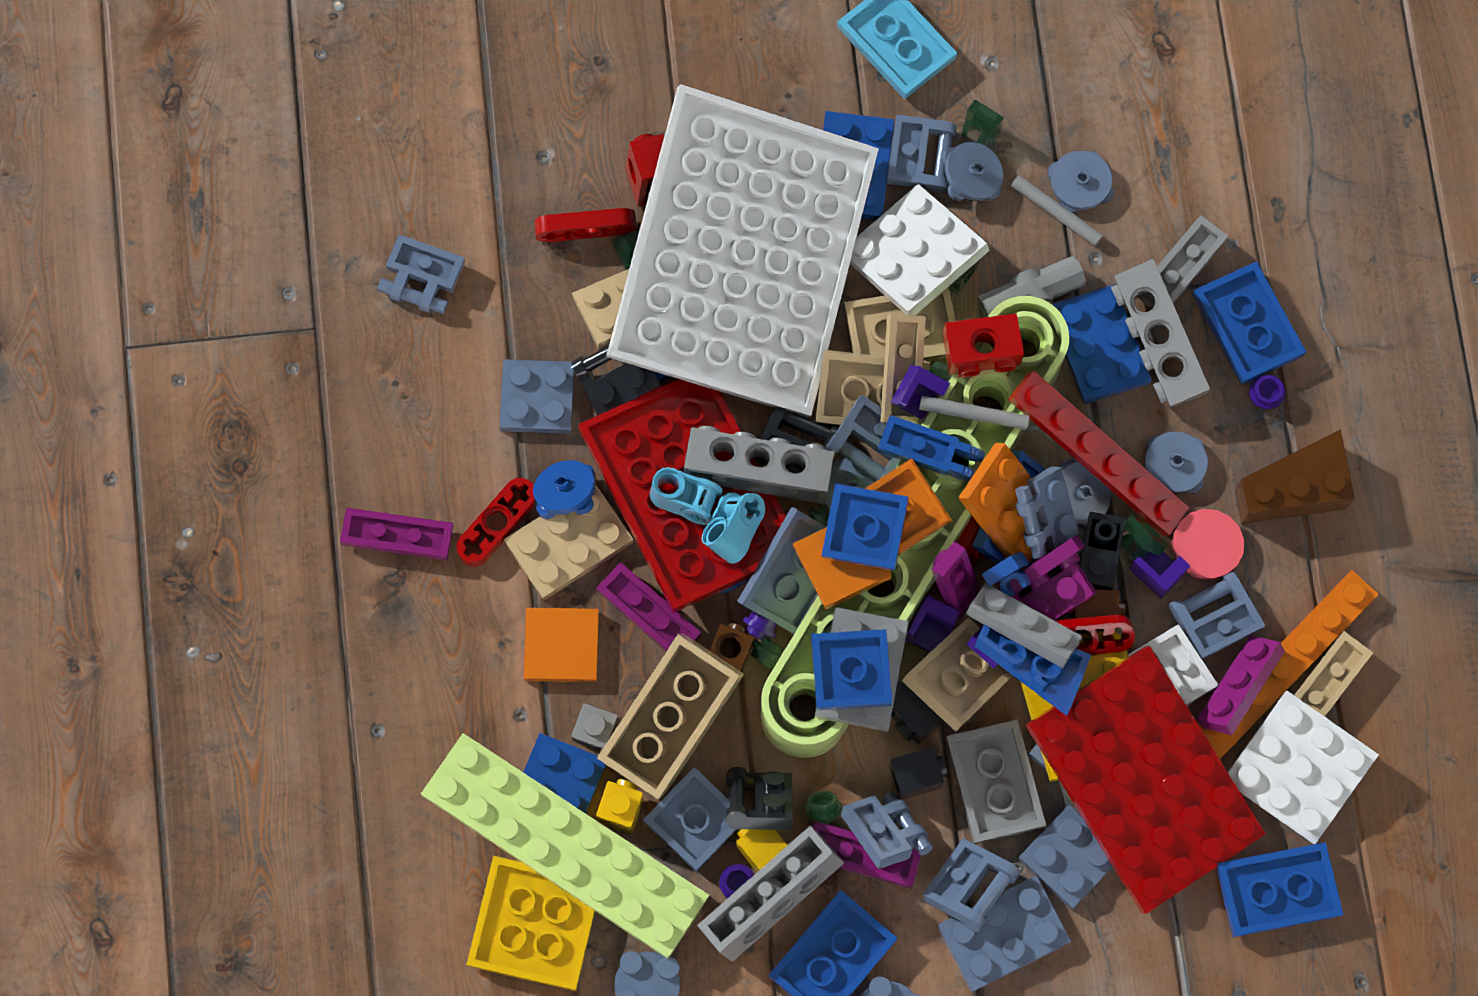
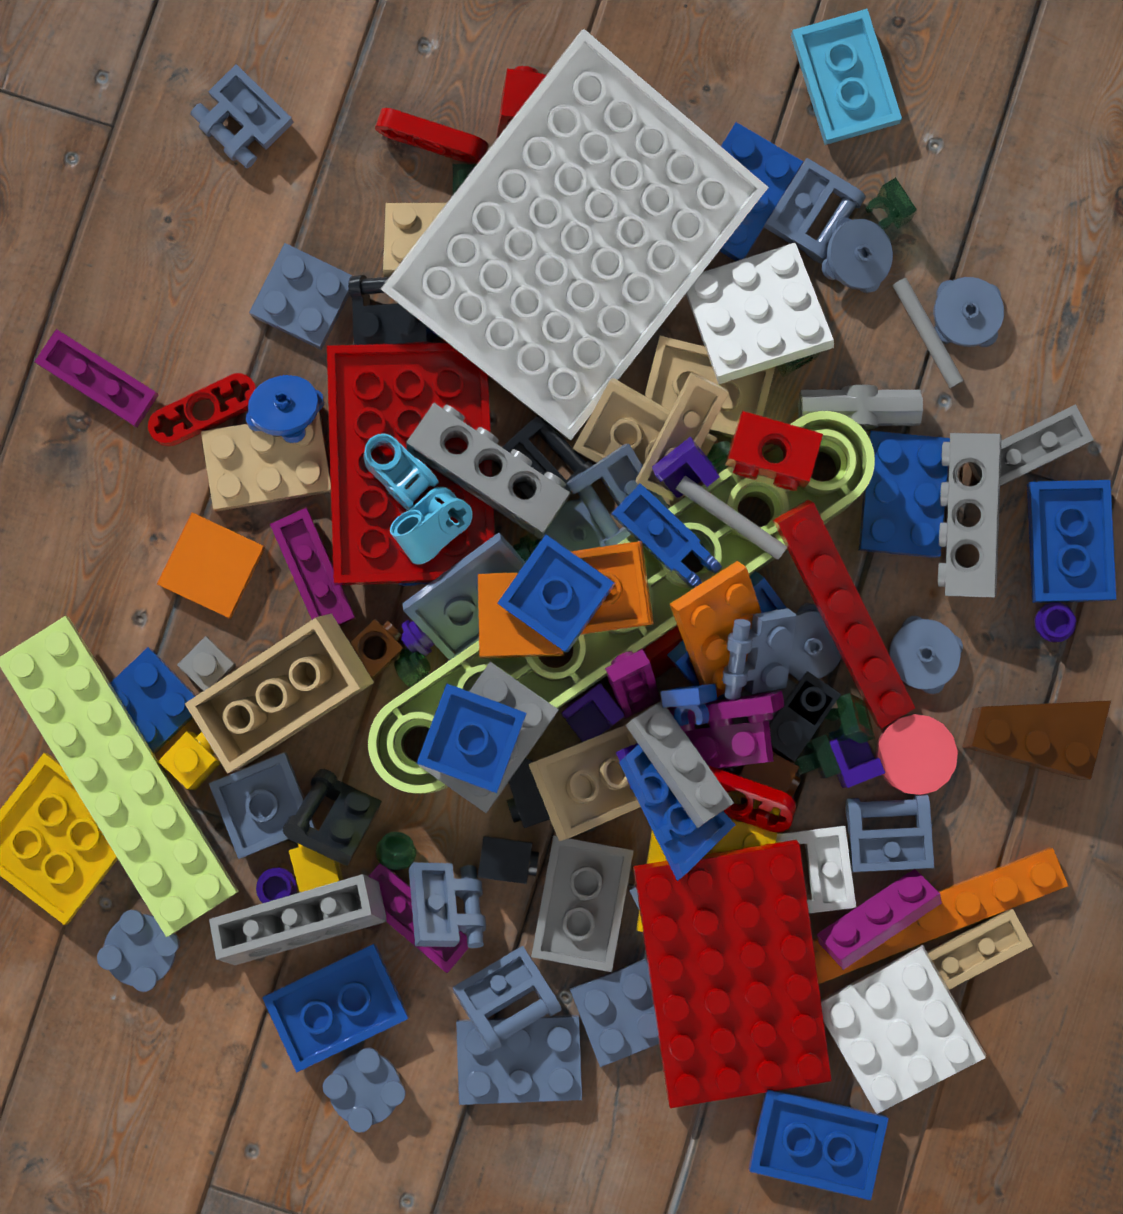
camera: 25 degrees right, 10 degrees up
(1133, 579) = (819, 758): none -> clear green tile

